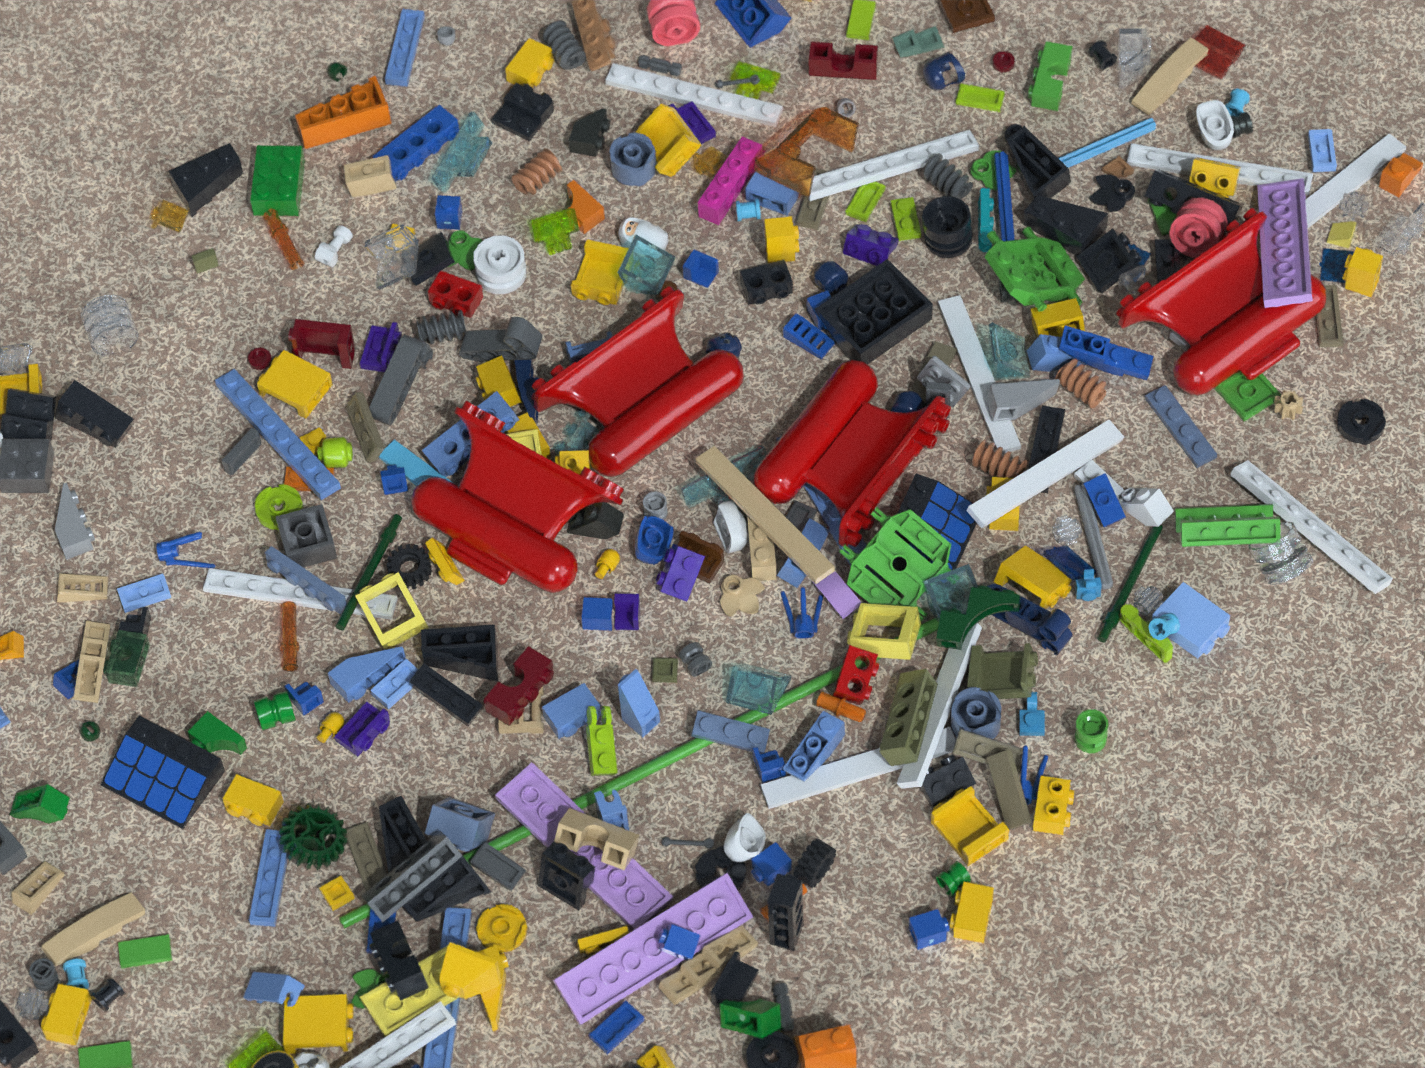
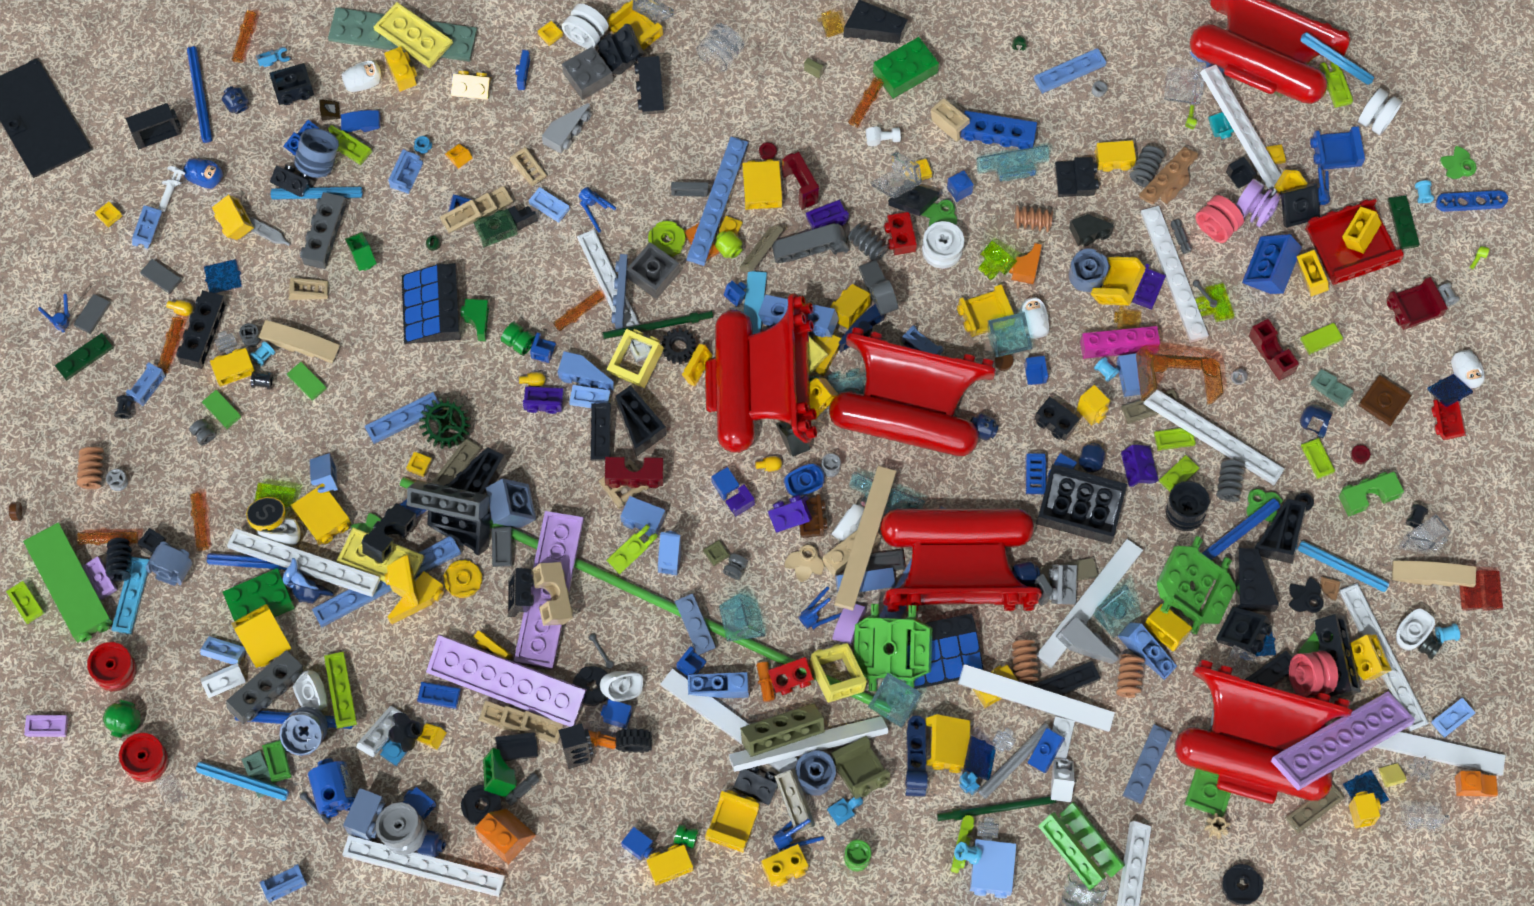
camera: 50 degrees right, 10 degrees up
(252, 801) = (447, 369): yellow brick -> none
(344, 115) = (985, 72): orange wedge -> none
(613, 811) = (578, 590): medium blue hinge -> none
(678, 941) = (516, 693): blue brick -> none
(982, 603) = (867, 715): dark green arch -> none
(985, 222) = (1215, 527): teal hinge -> none
(1009, 789) = (773, 830): dark tan tile -> none
(1103, 355) = (1162, 676): blue slope -> none

